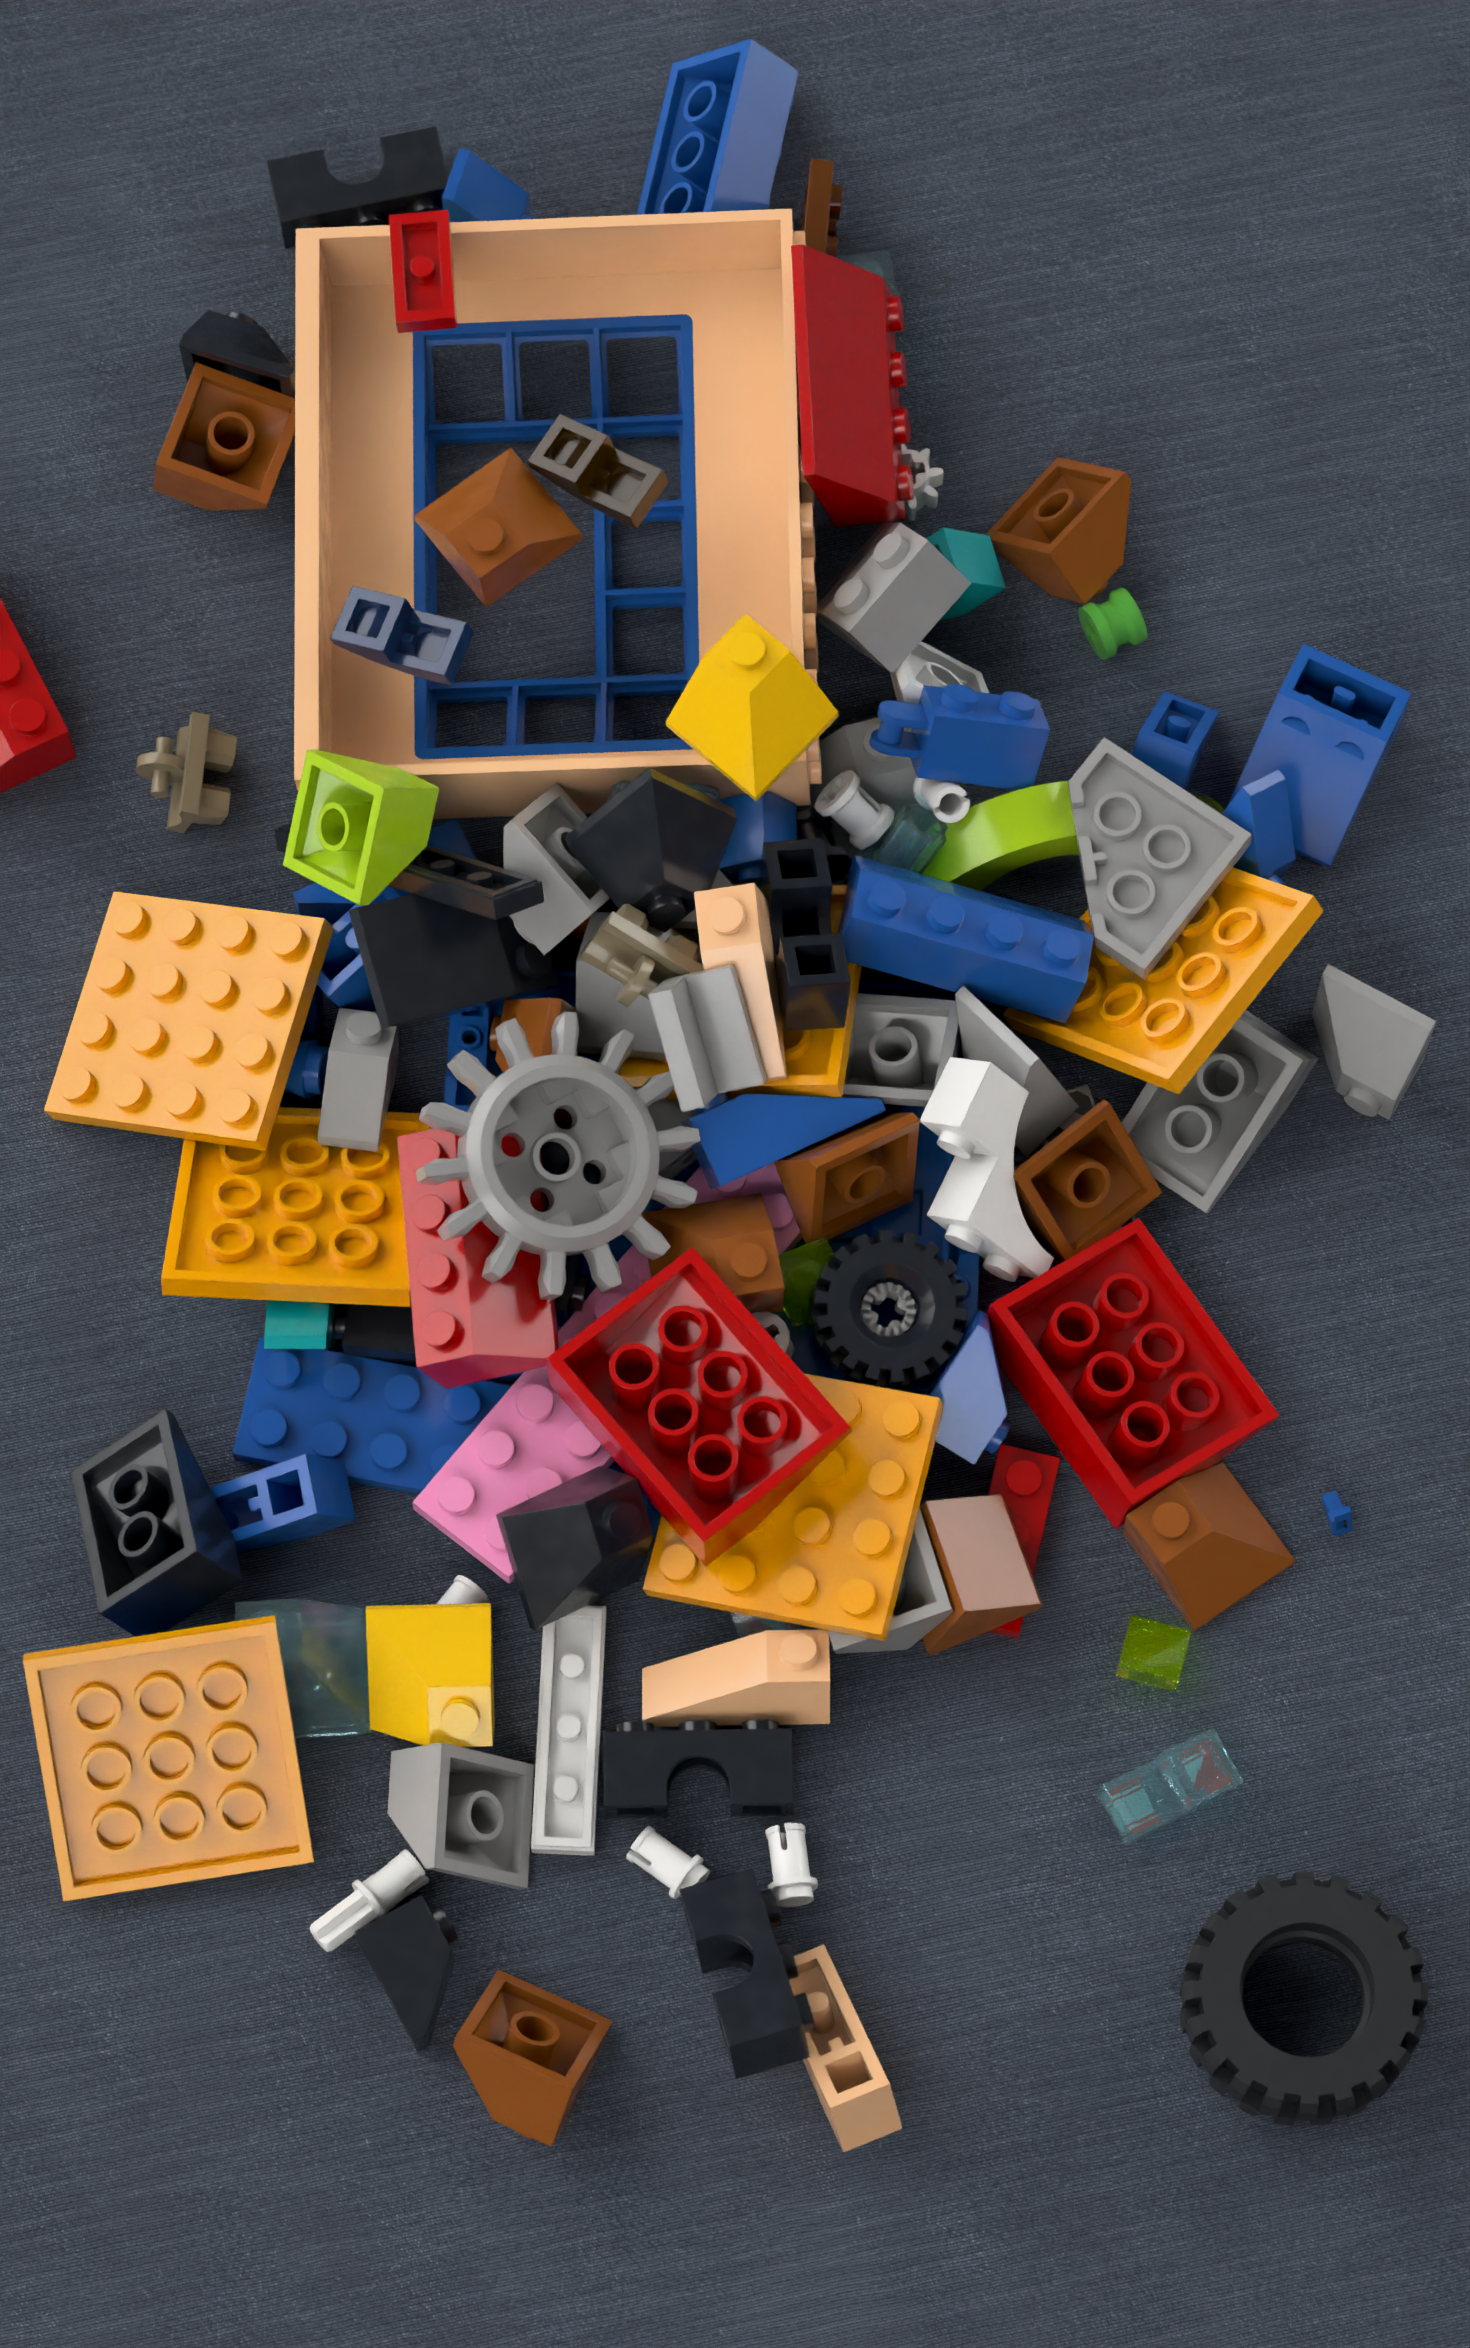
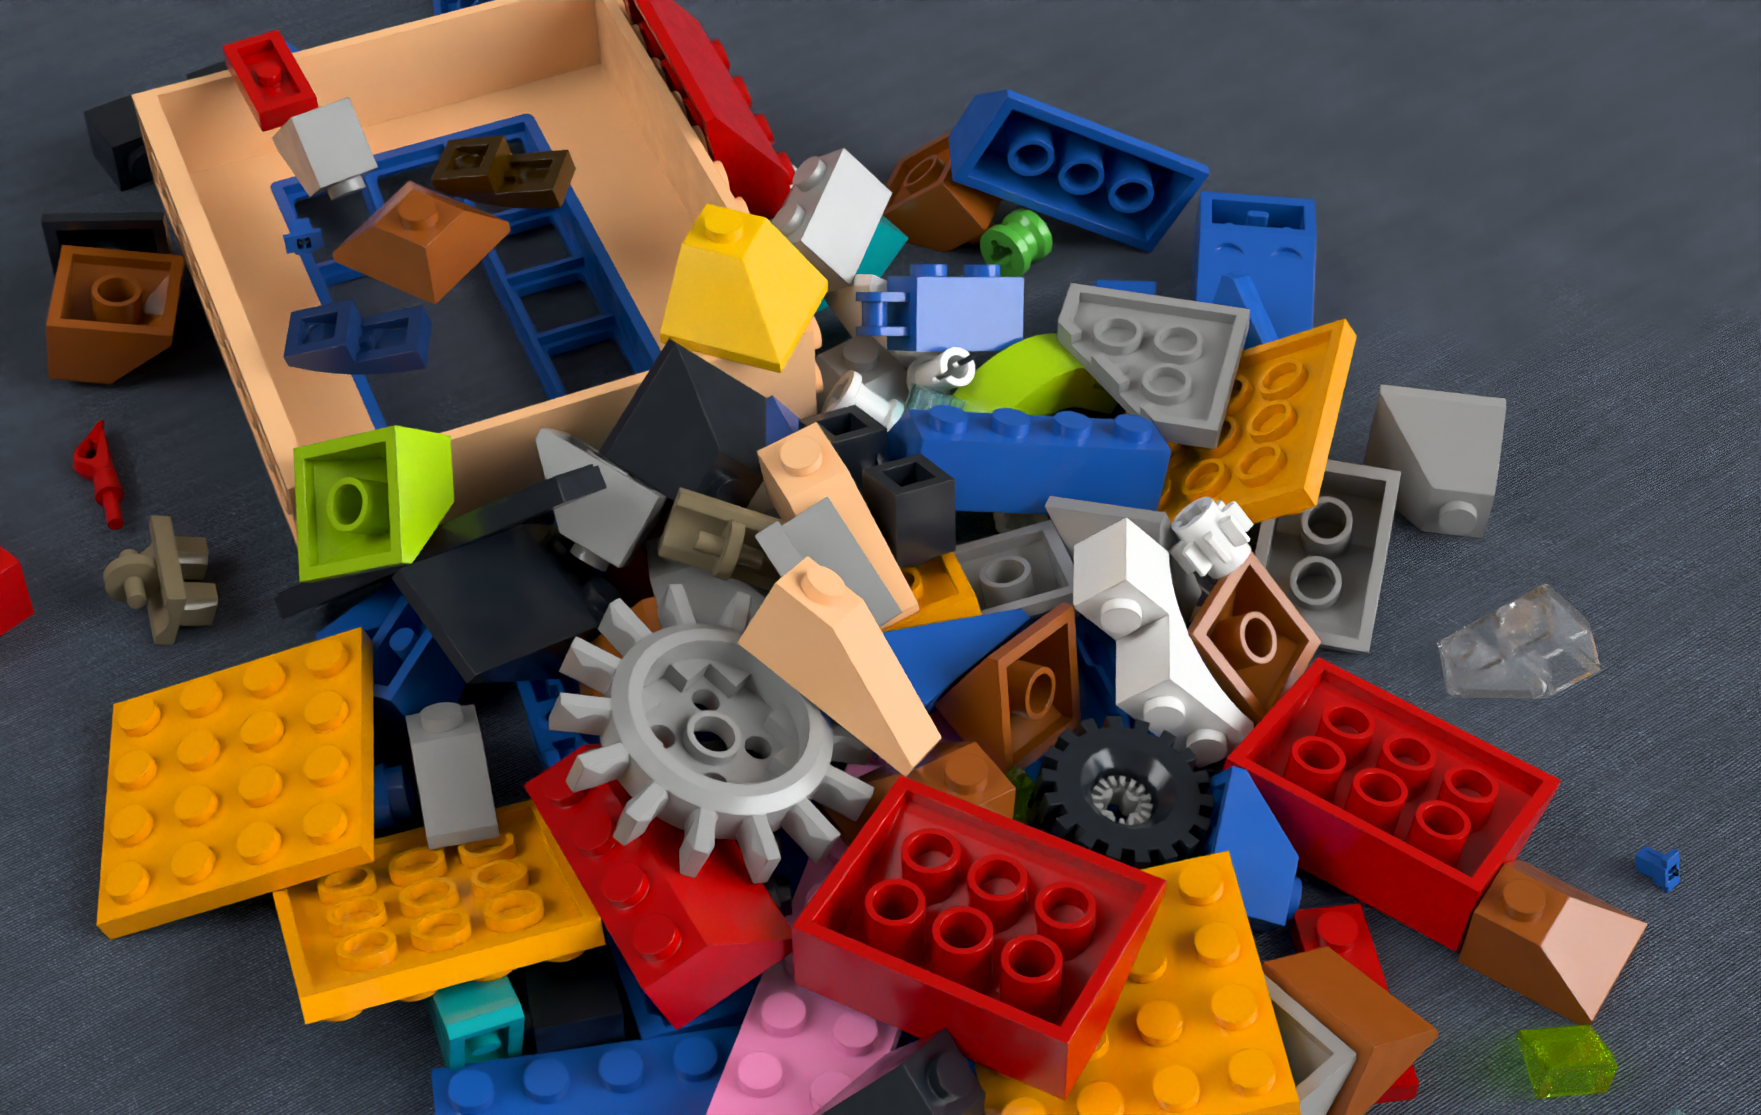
camera: 25 degrees left, 25 degrees down
(172, 615) = (101, 472): none -> red hand
(393, 485) = (302, 237): none -> blue piece
(442, 392) = (327, 150): none -> light grey slope
(679, 1139) = (837, 657): none -> light nougat slope
(1075, 1088) = (1211, 537): none -> white gear
(1185, 574) = (1071, 168): none -> blue slope
(1335, 1265) = (1520, 650): none -> clear slope

